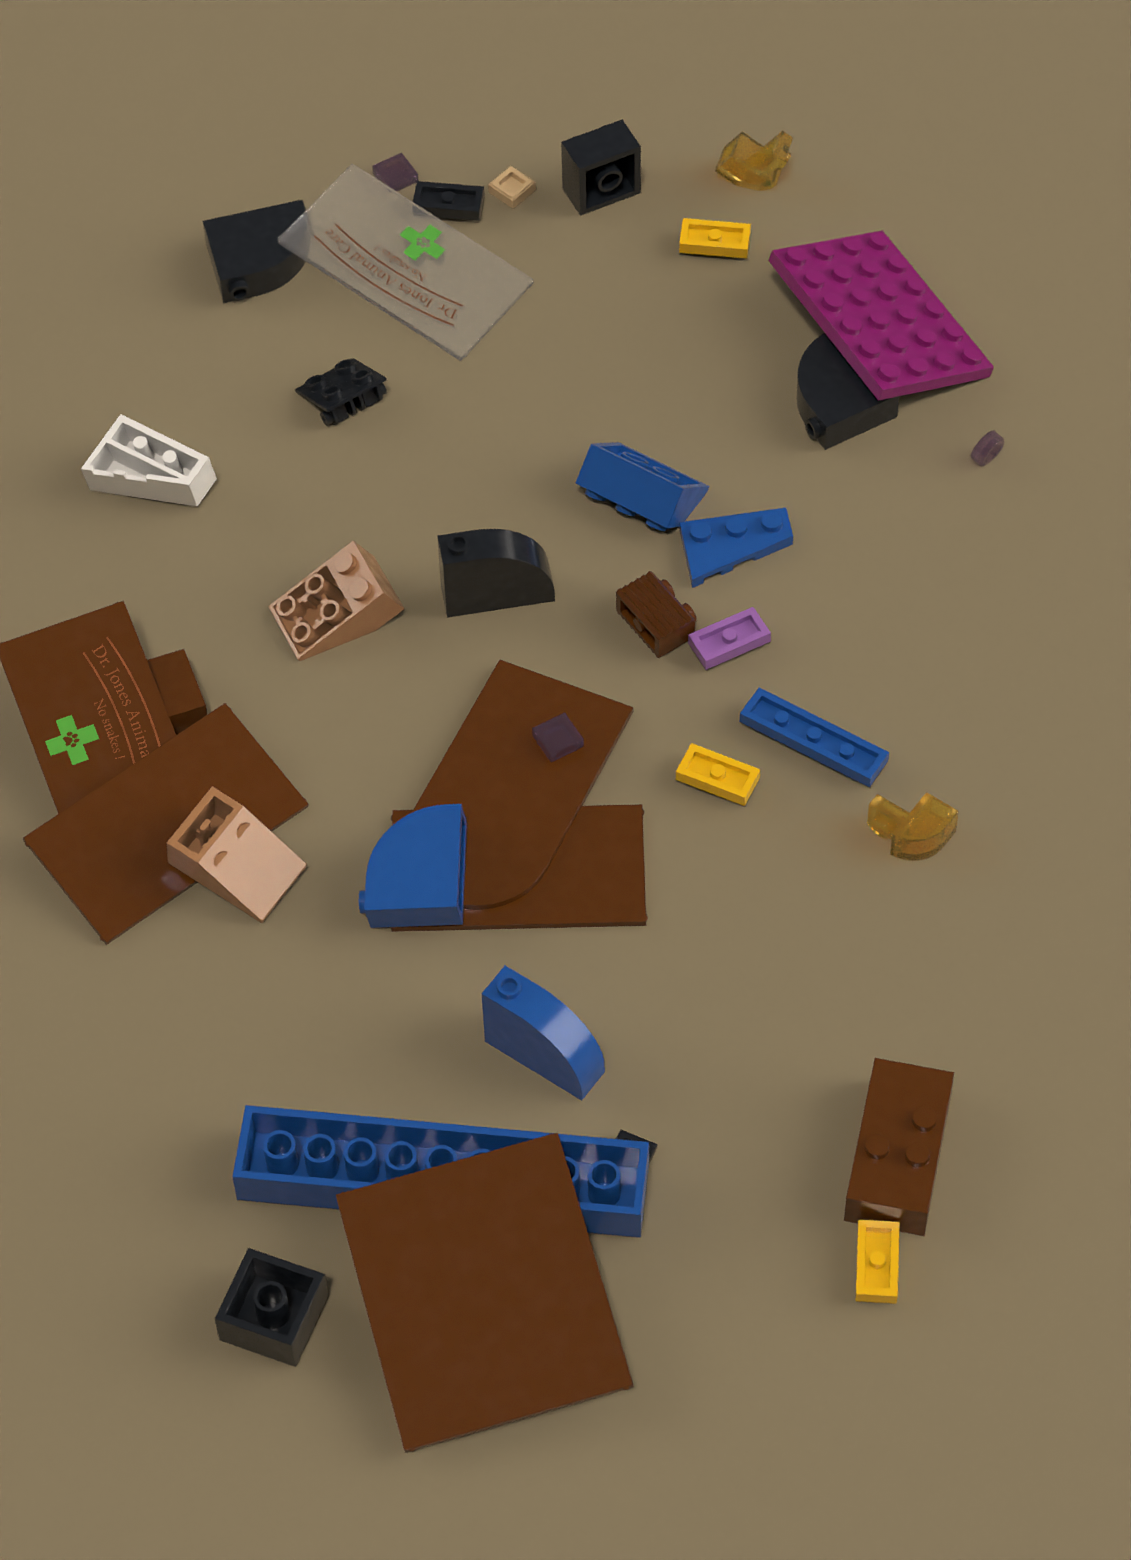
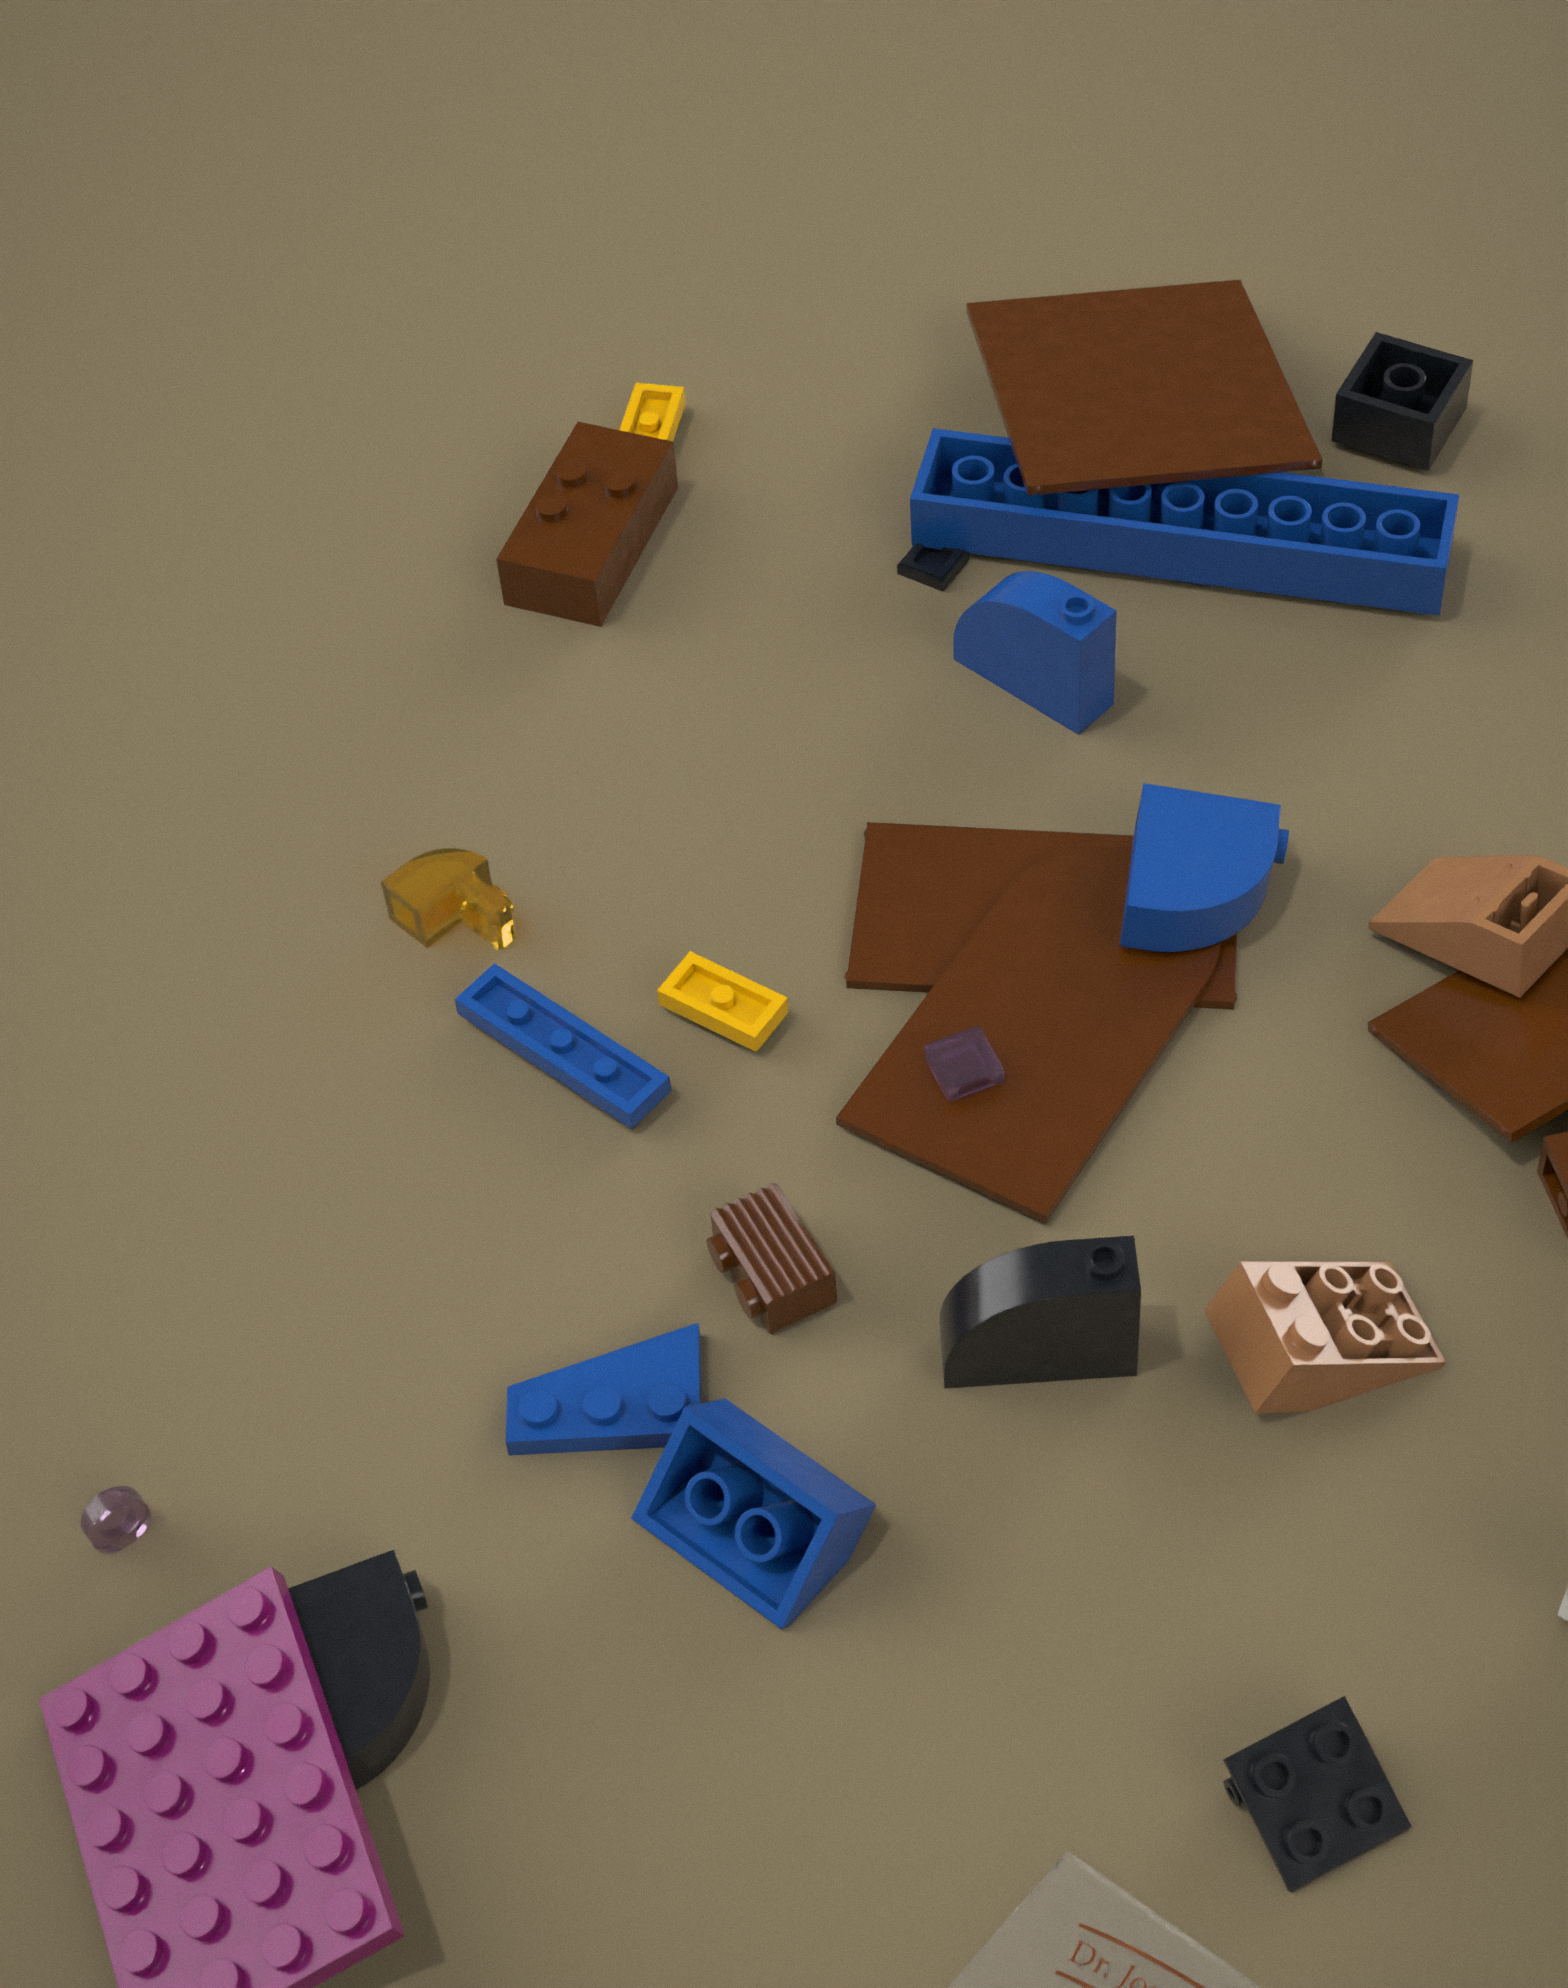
camera: 170 degrees left, 5 degrees down
(729, 638) = (655, 1213): medium lavender plate -> none

